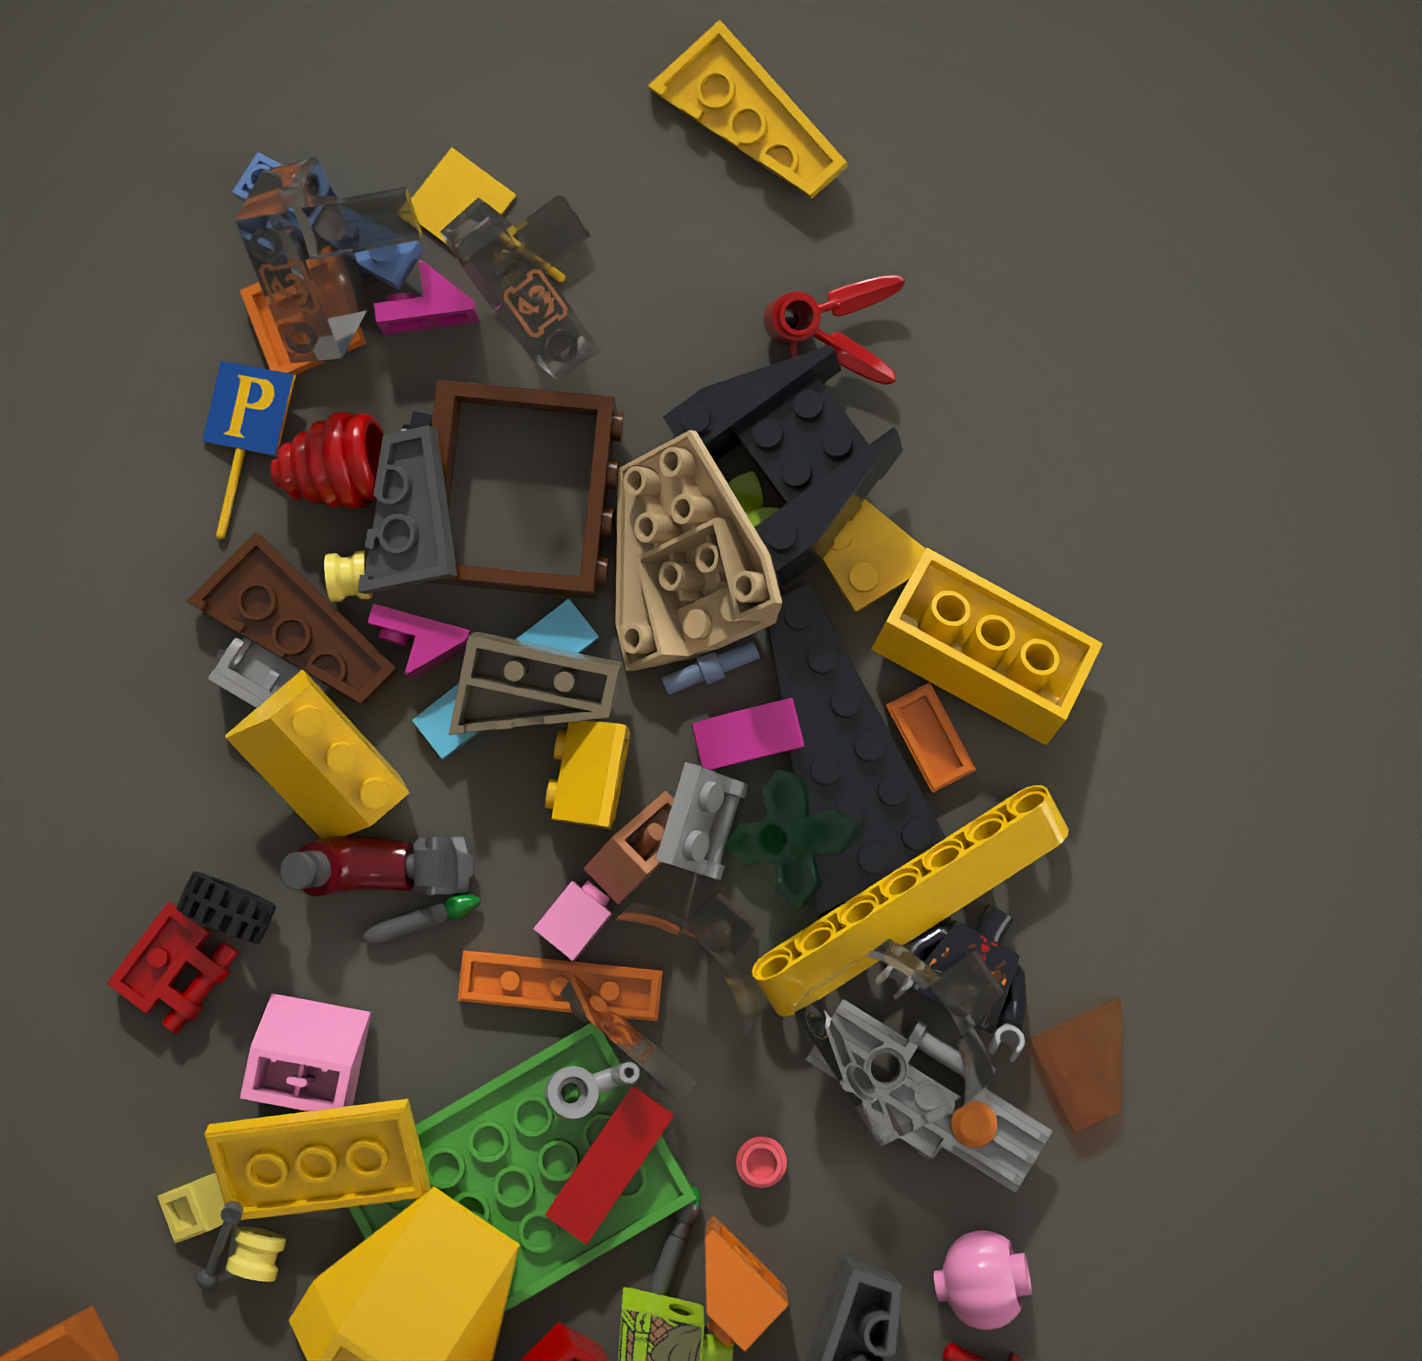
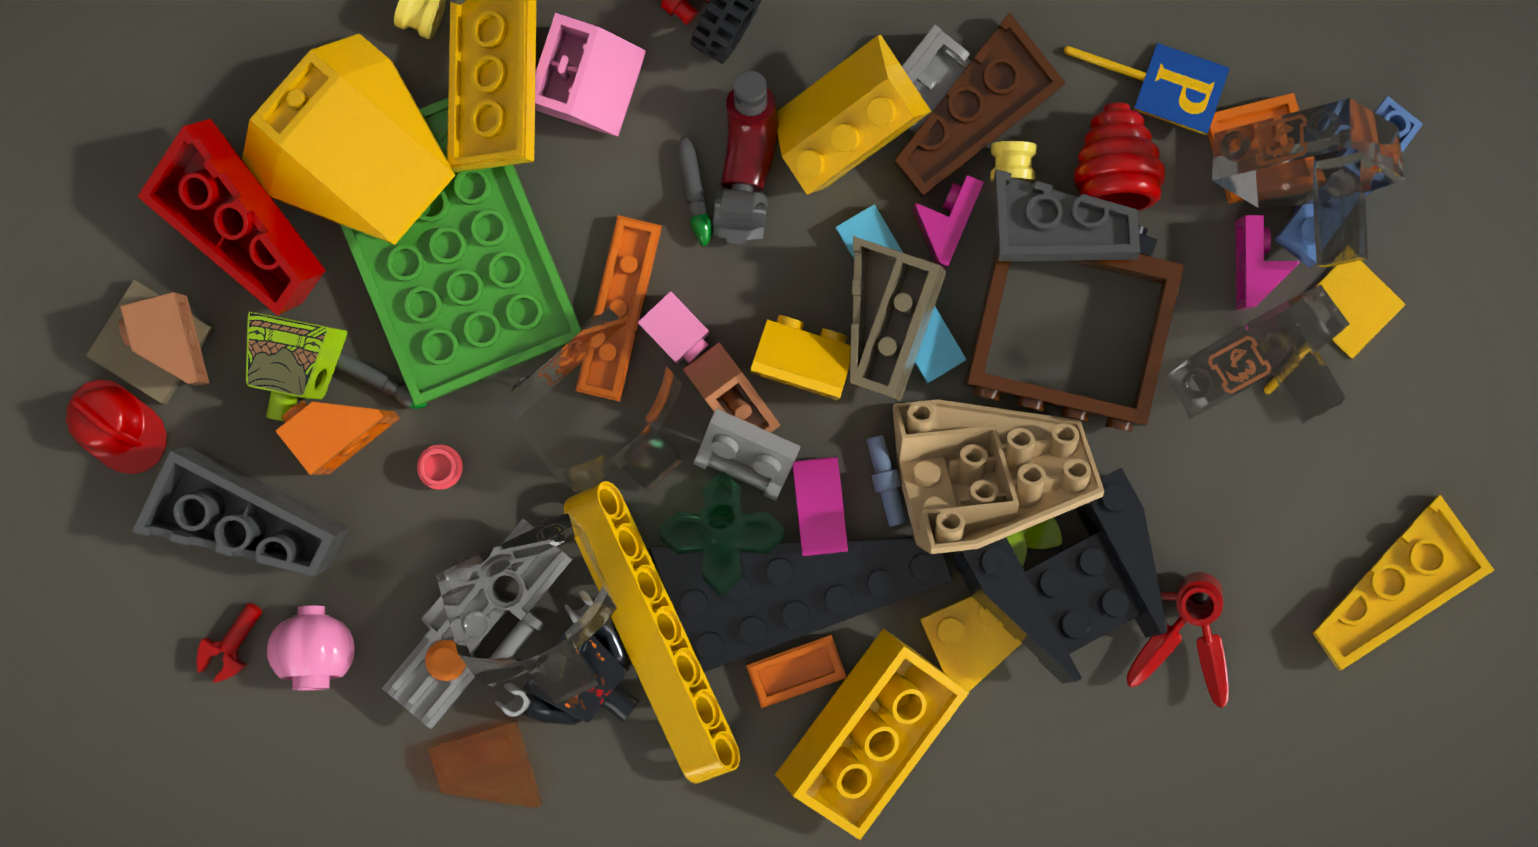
camera: 95 degrees right, 5 degrees up
(588, 1087) = (525, 321): light grey plate -> none
(609, 1164) = (454, 332): red tile -> none

